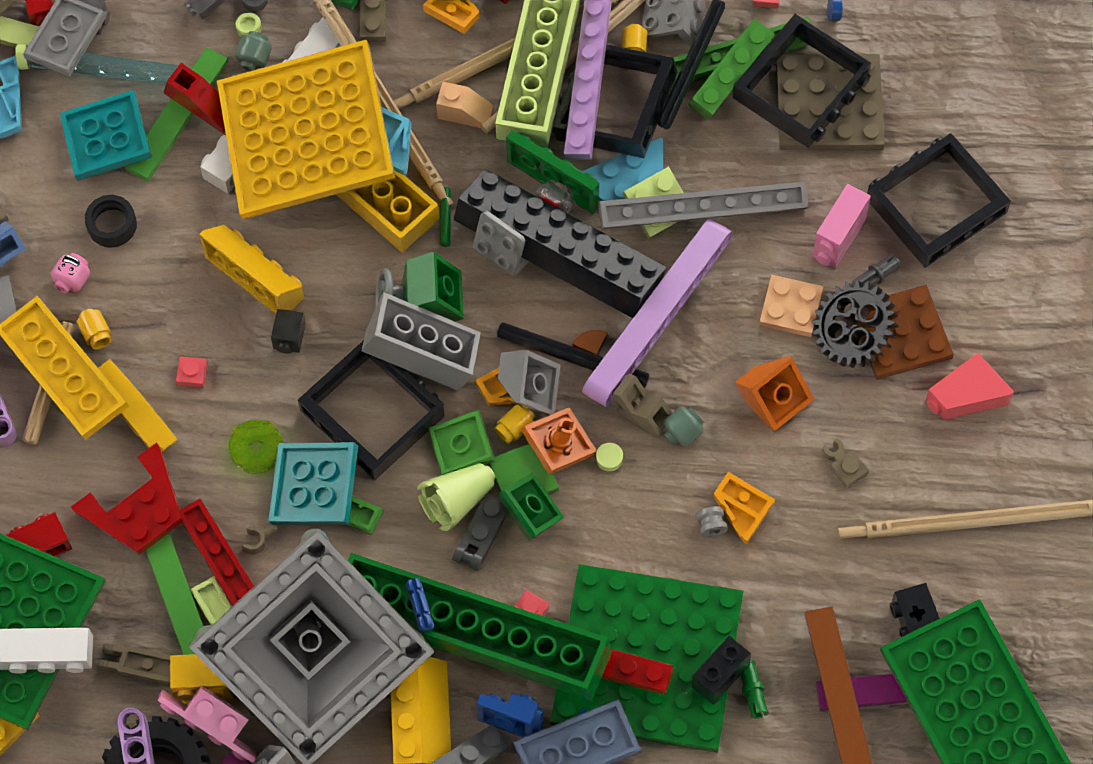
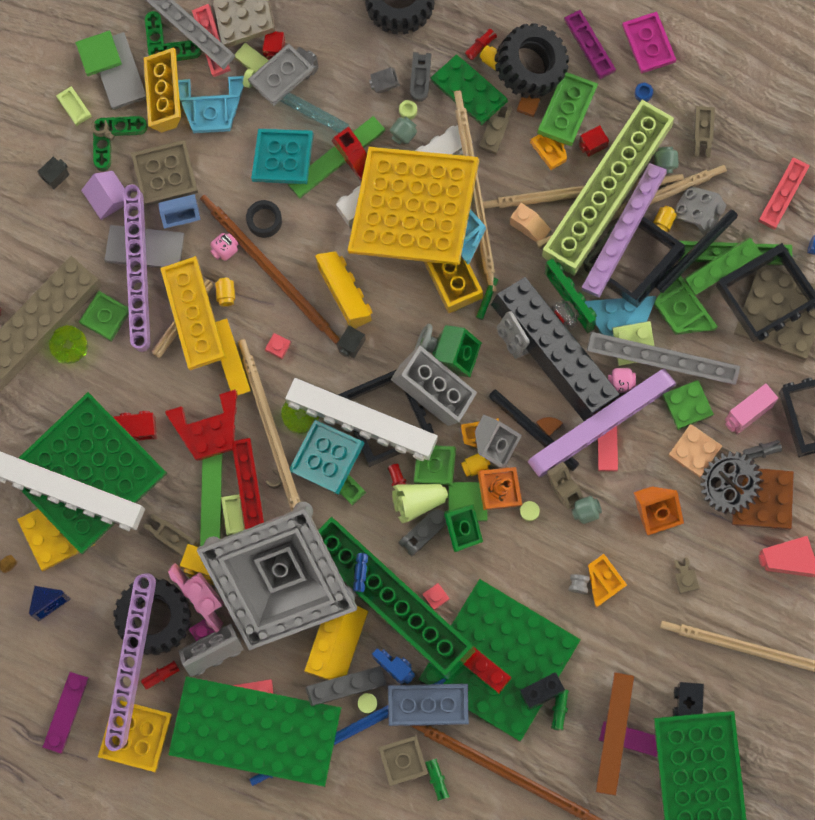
camera: 25 degrees right, 10 degrees up
(144, 281) = (270, 269): none -> dark orange axle
(217, 470) = (269, 425): none -> tan axle
(342, 416) = (361, 419): none -> white brick
(414, 474) = (396, 475): none -> red pin
(663, 249) = (622, 379): none -> bright pink head
(680, 347) = (608, 451): none -> coral tile
(703, 141) = (683, 310): none -> bright green wing
(758, 254) = (687, 404): none -> bright green plate

